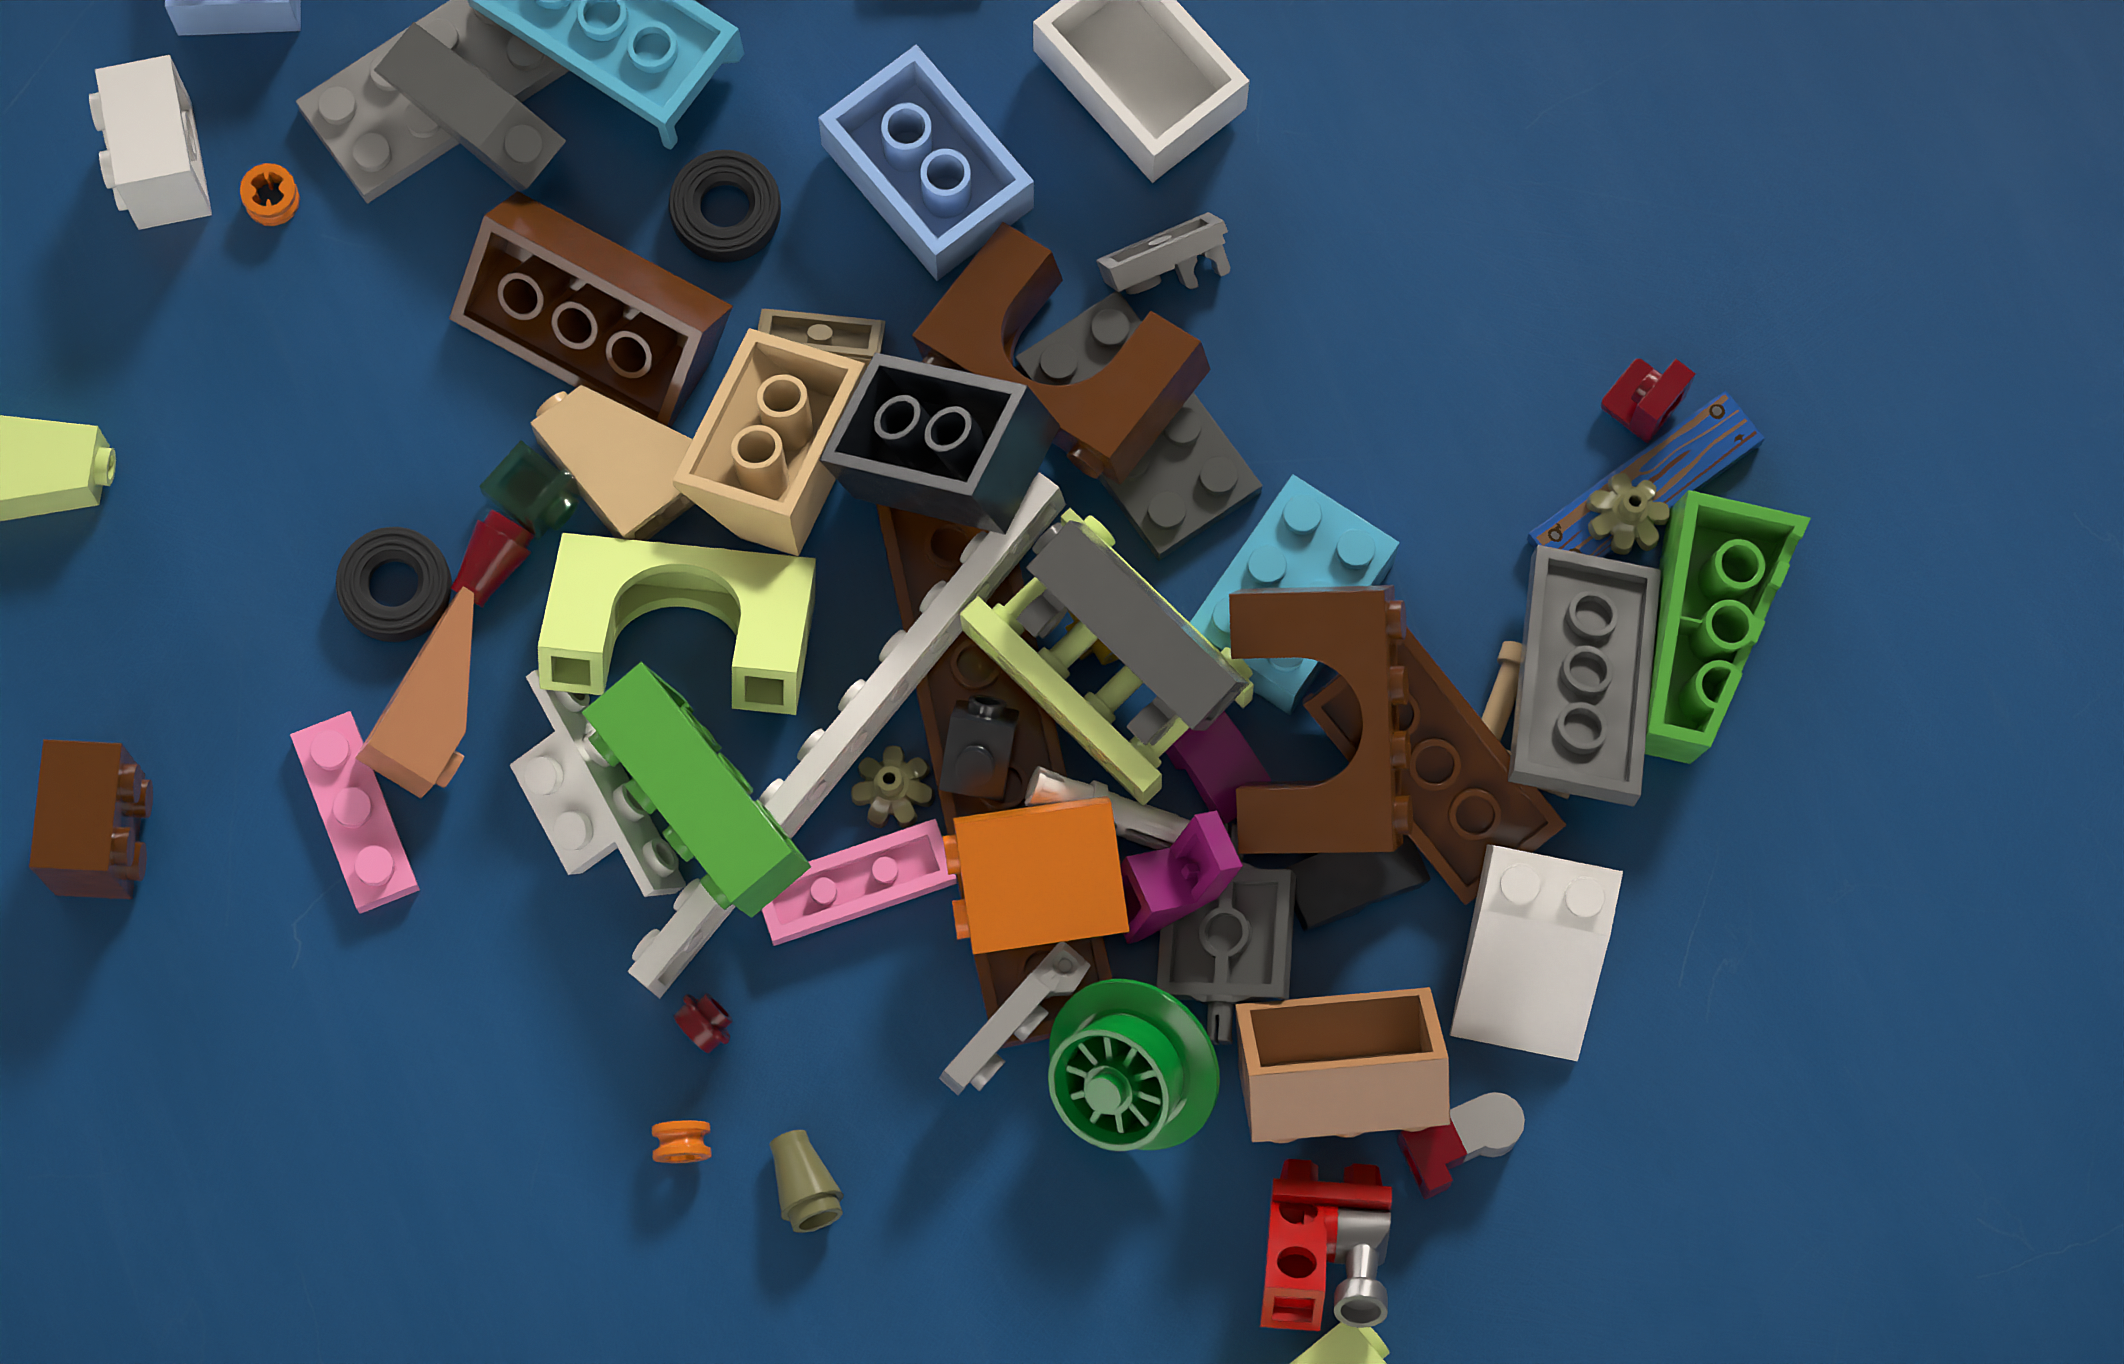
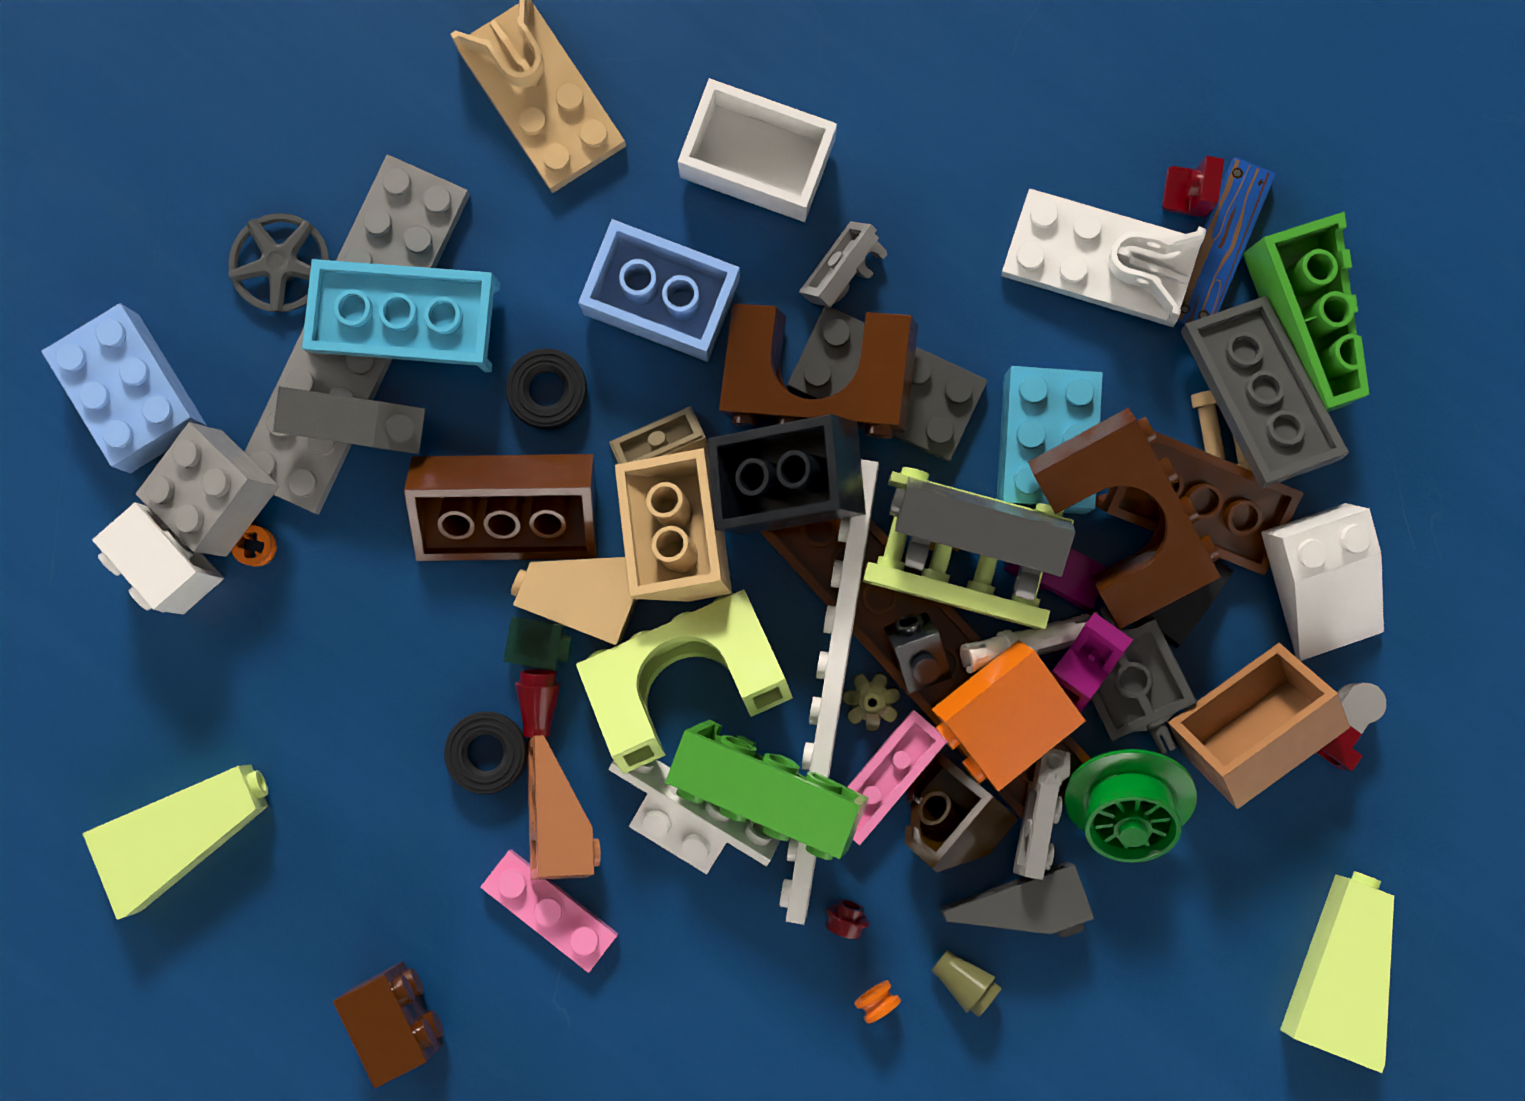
camera: 30 degrees left, 10 degrees up
(257, 95) = (207, 490): none -> light grey brick
(908, 971) = (953, 817): none -> dark brown slope
(943, 1132) = (1028, 904): none -> dark grey slope
(1321, 1225) = (1298, 832): red hips -> none
(1489, 419) = (1102, 257): none -> white plate
(1627, 514) = (1222, 271): olive plant -> none

